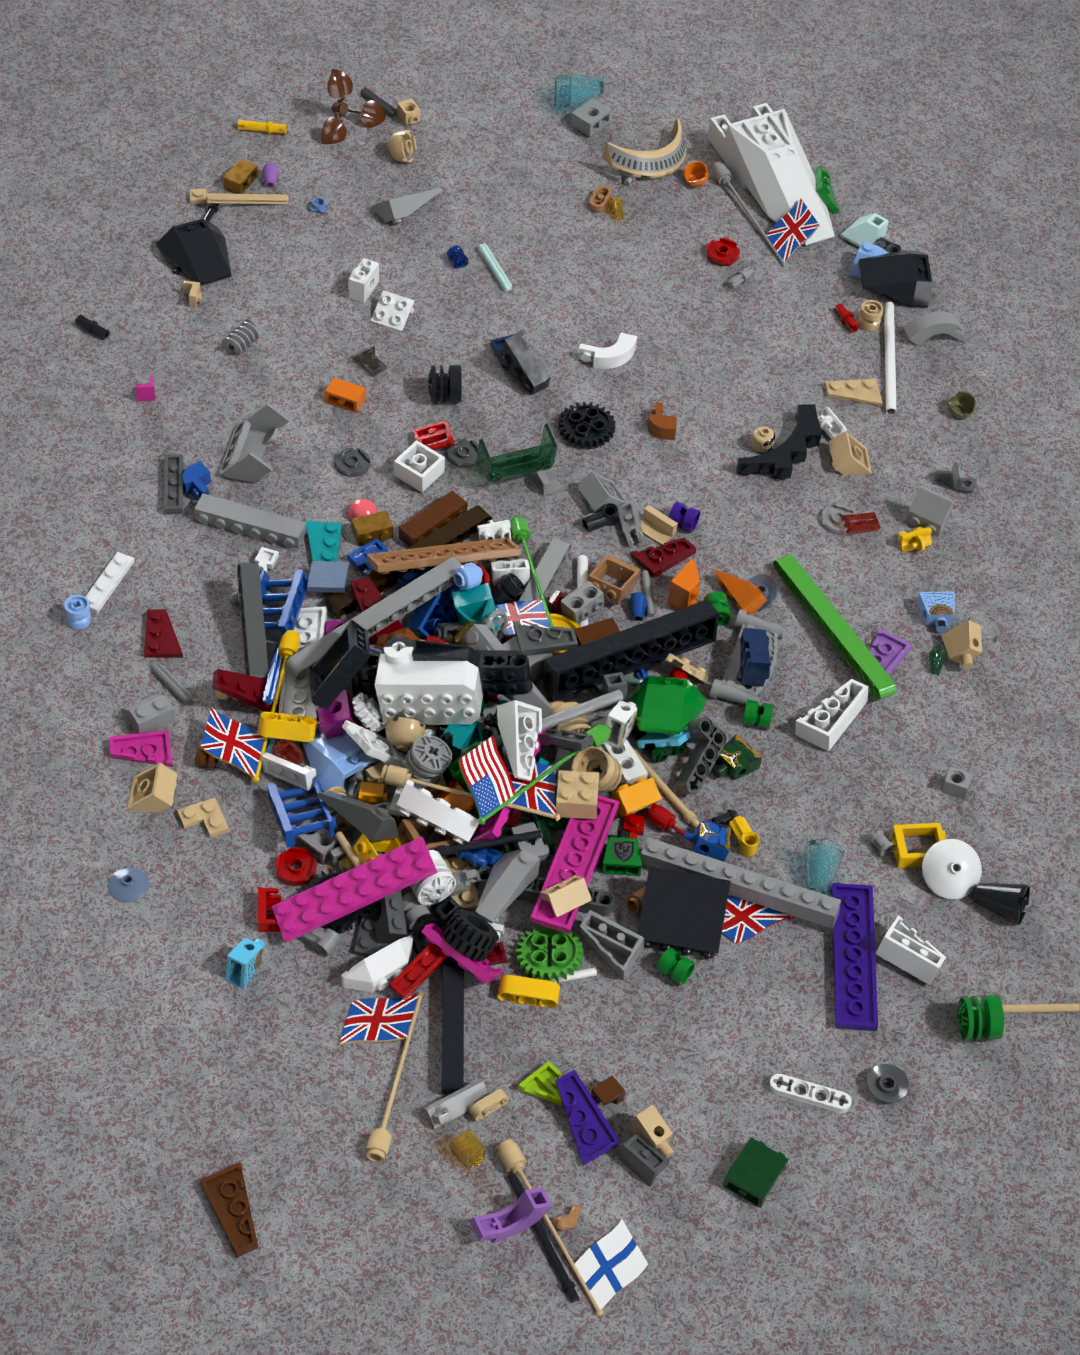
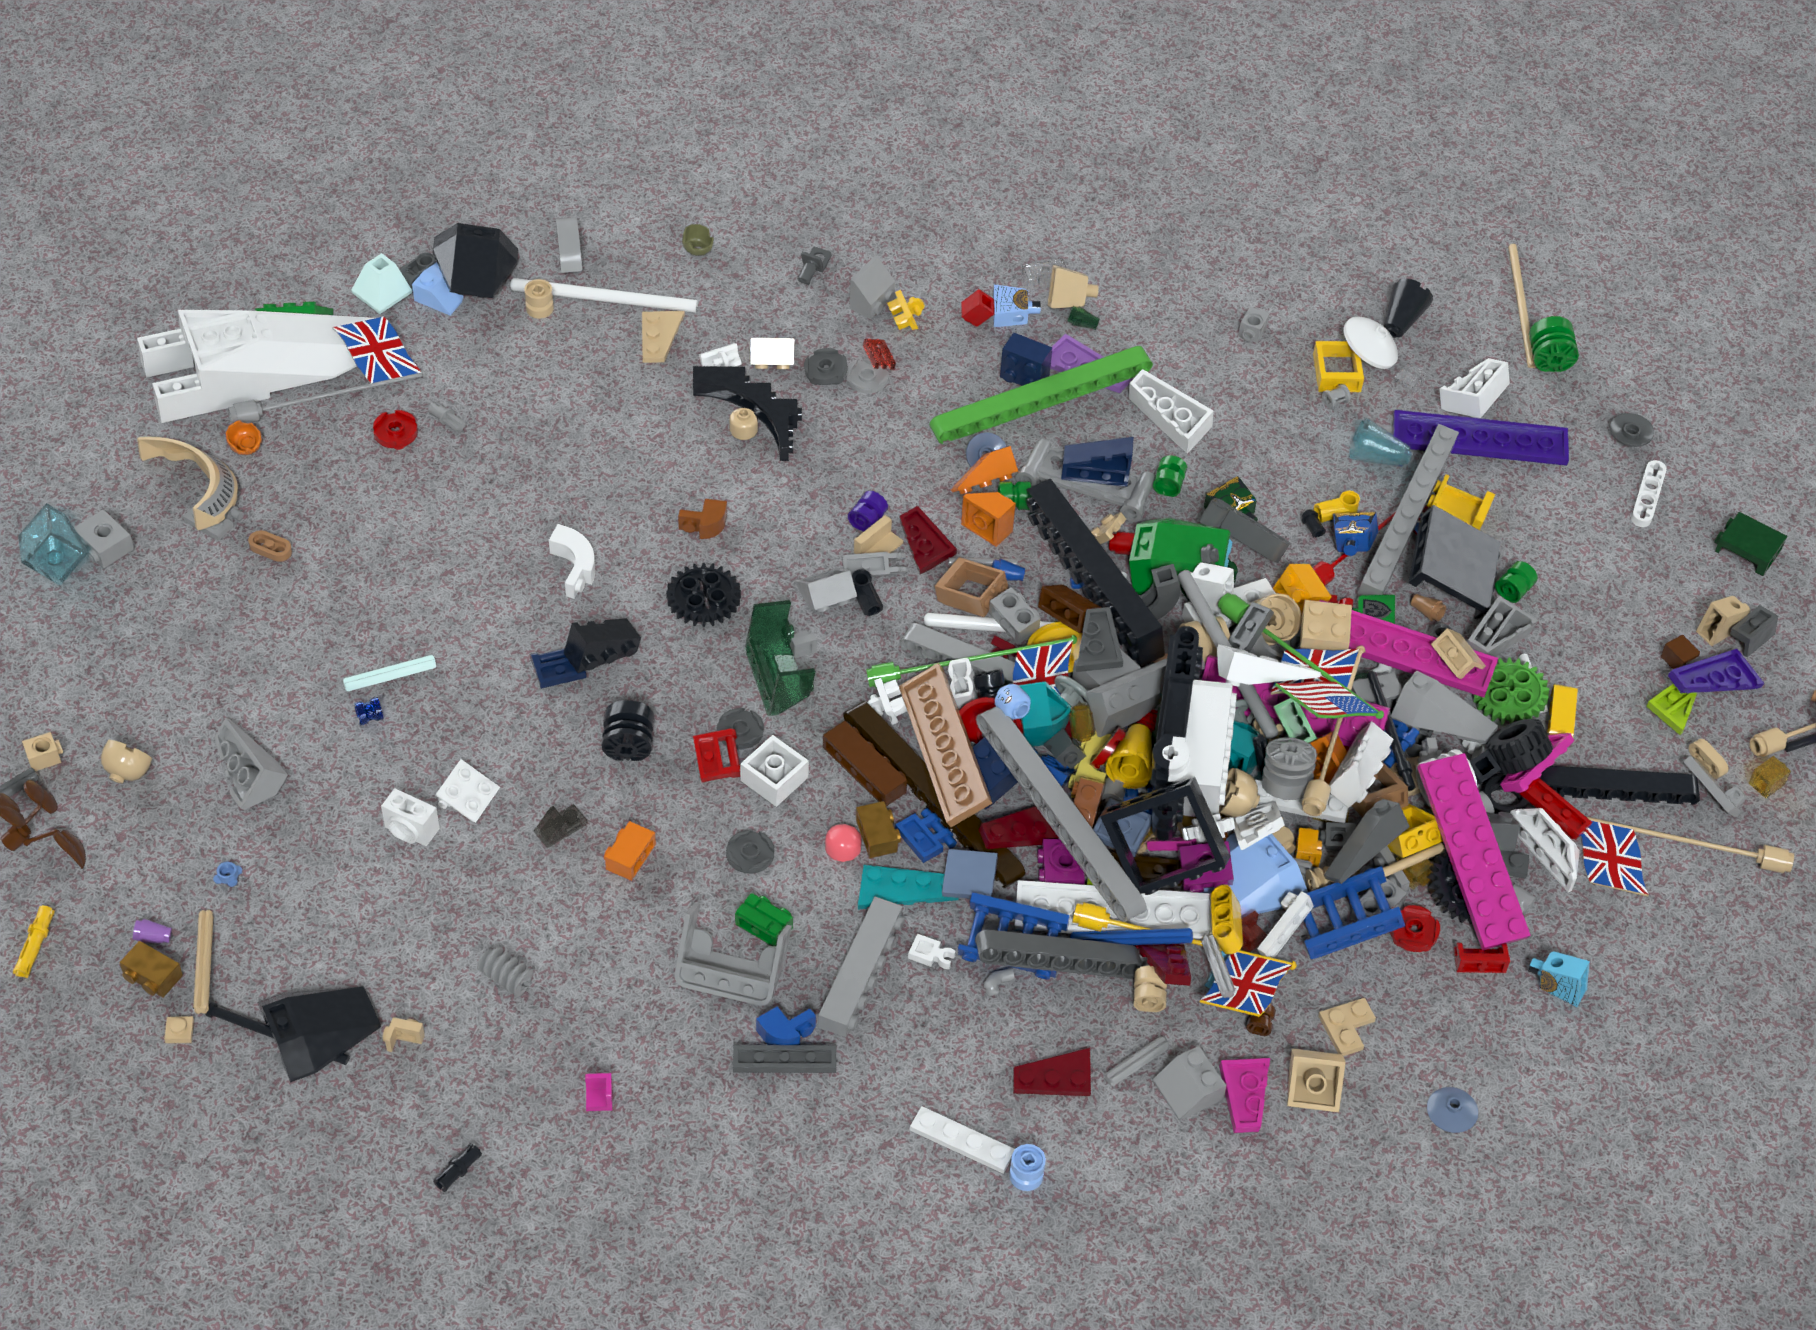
camera: 85 degrees left, 0 degrees up
(237, 720) = (1218, 966): none -> light grey axle
(289, 468) = (762, 918): none -> green brick
(615, 206) = (293, 530): clear yellow cone -> none
(645, 713) = (1209, 554): none -> dark grey plate
(689, 816) = (1309, 555): tan bar -> none
(761, 928) = (1460, 503): none -> yellow panel
(845, 496) = (818, 374): none -> dark grey plate
(846, 317) = (533, 324): red pin -> none
(865, 610) = (1025, 360): none -> dark blue brick
(925, 583) = (977, 308): none -> red brick

